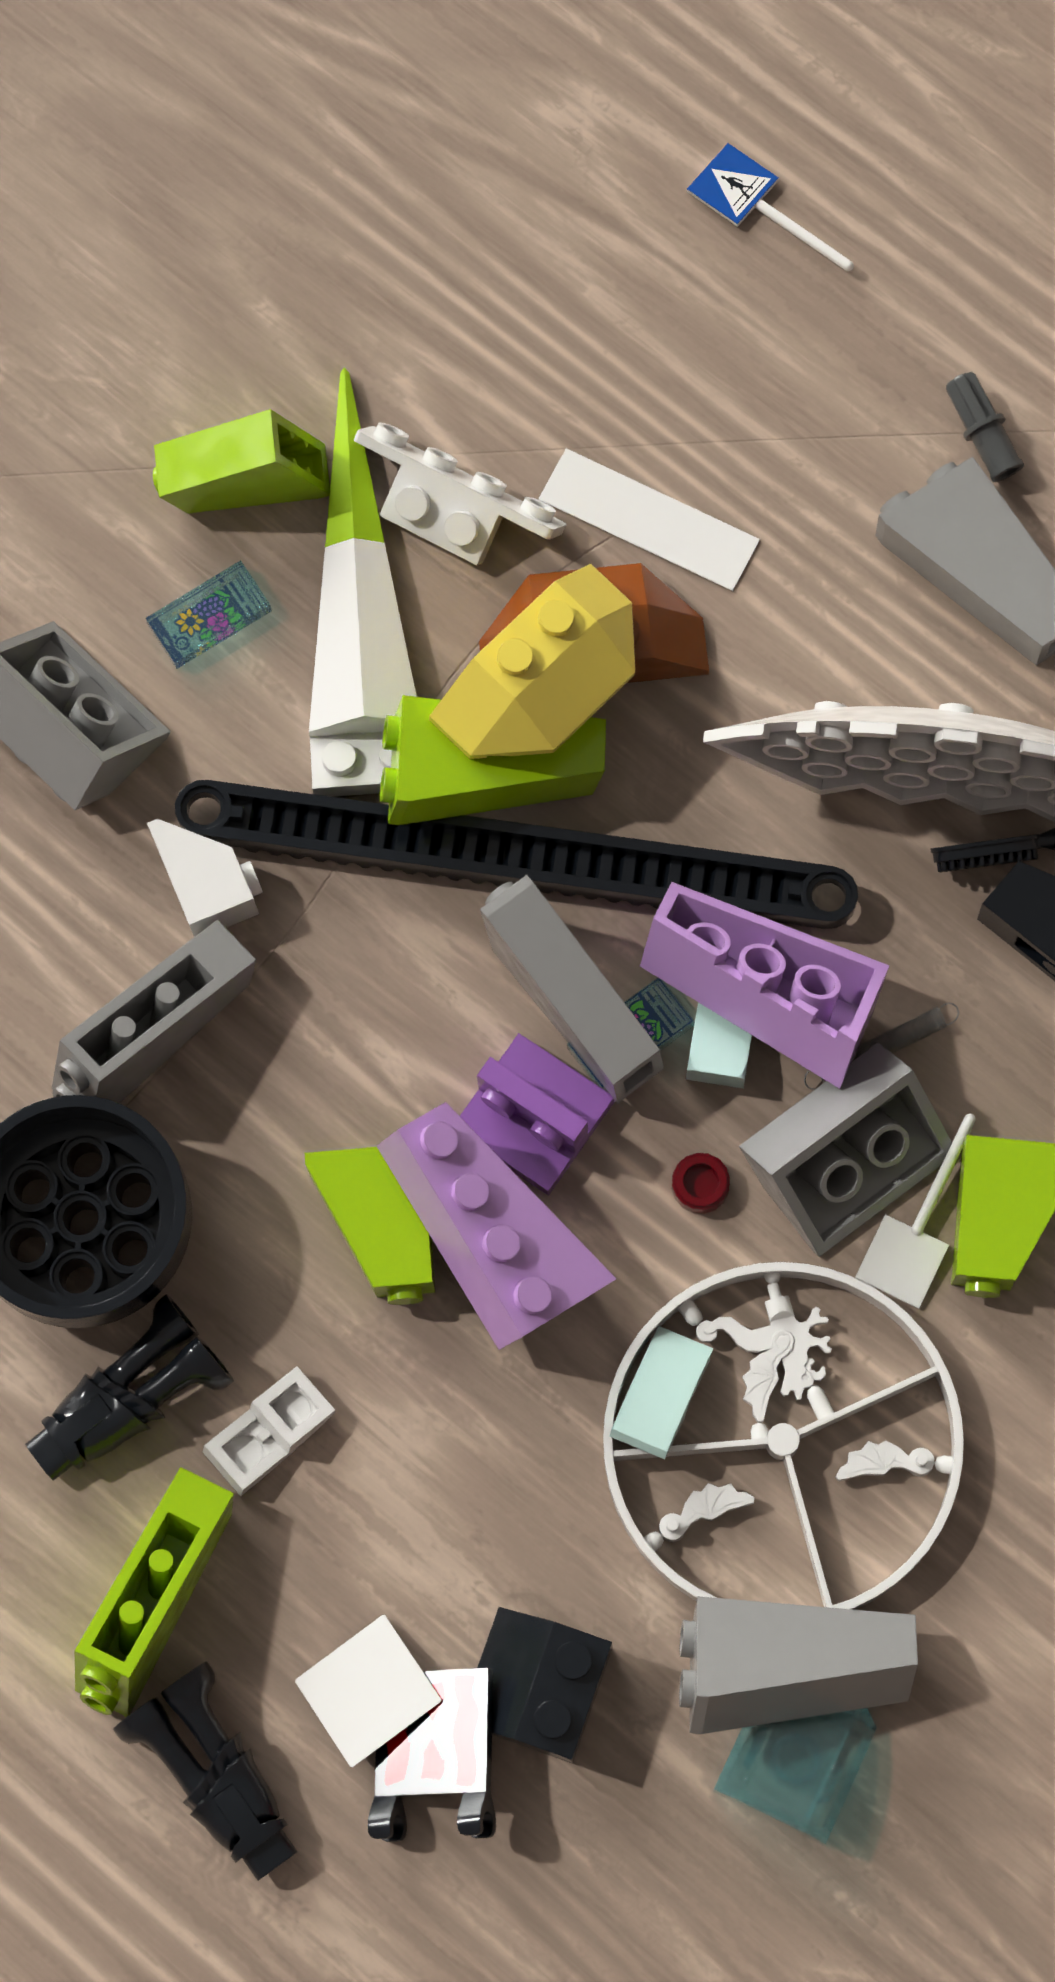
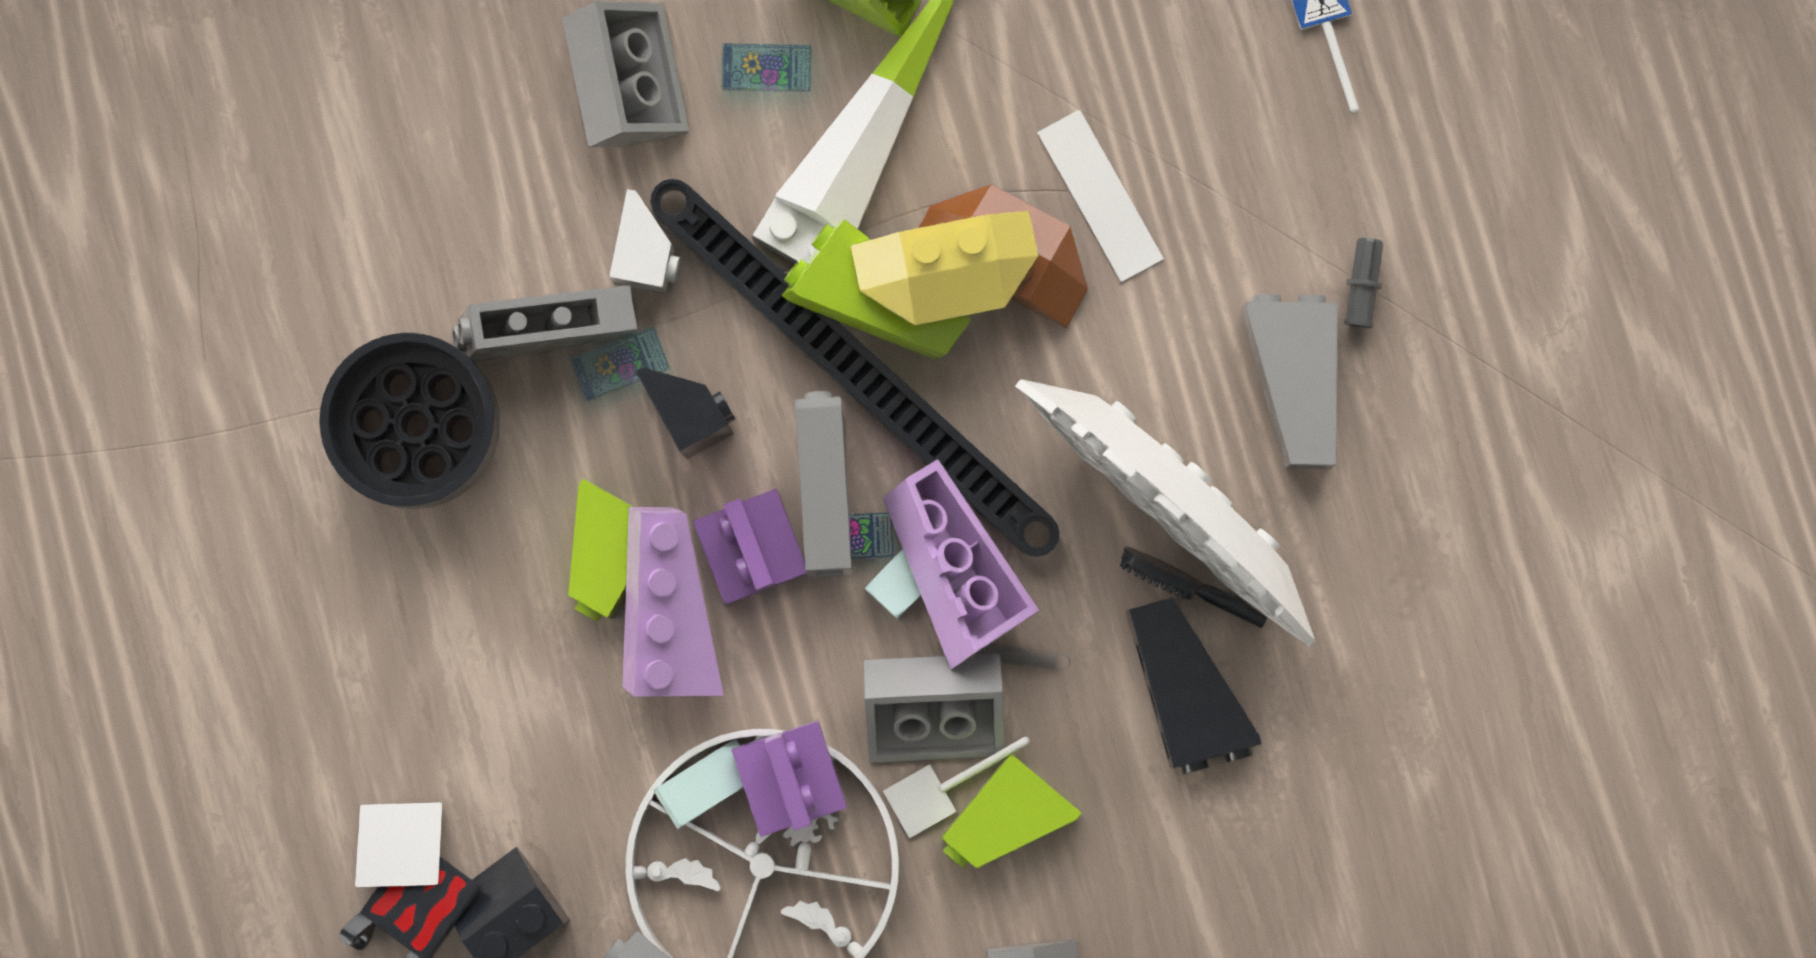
camera: 30 degrees right, 10 degrees up
(107, 1412) = (353, 559): black piece -> none
(150, 1594) = (303, 693): lime slope -> none
(231, 1793) = (269, 852): black piece -> none
(260, 1016) = (615, 363): none -> clear light blue tile
(268, 1431) = (446, 638): white slope -> none
(367, 1006) = (688, 411): none -> black slope
(447, 503) = (975, 97): white bracket -> none
(700, 1183) = (826, 664): dark red tile -> none
(747, 1323) = (789, 778): none -> medium lavender bracket

